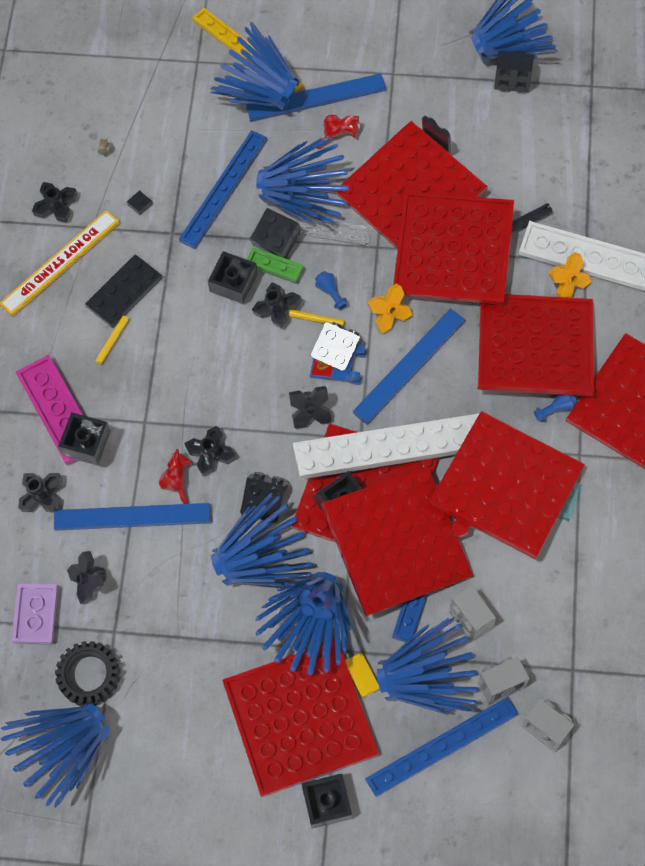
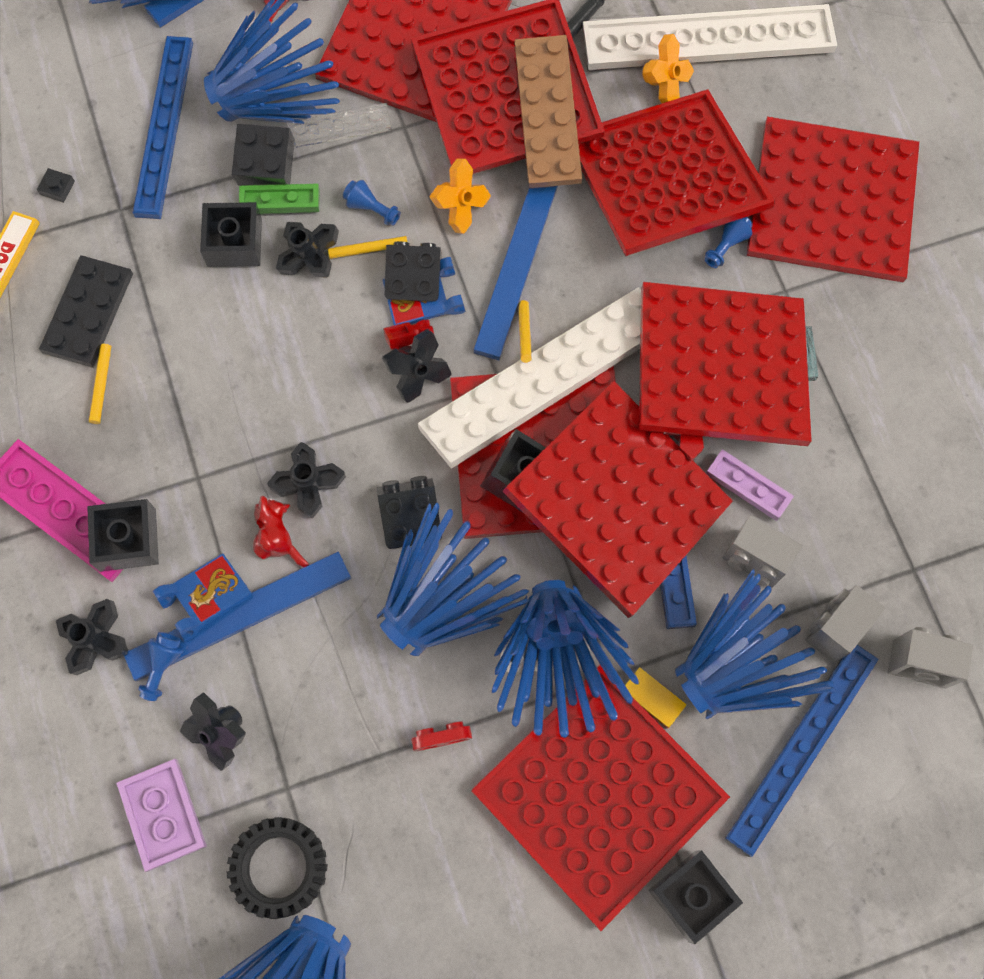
camera: 30 degrees left, 5 degrees up
(78, 518) = (163, 652): none -> blue piece
(116, 495) = (204, 595): none -> flag
(225, 642) = (428, 739): none -> red plate
(308, 383) = (403, 334): none -> red plate
(389, 412) = (524, 331): none -> yellow bar
(471, 274) = (548, 111): none -> medium nougat plate
(489, 570) = (749, 485): none -> lavender plate

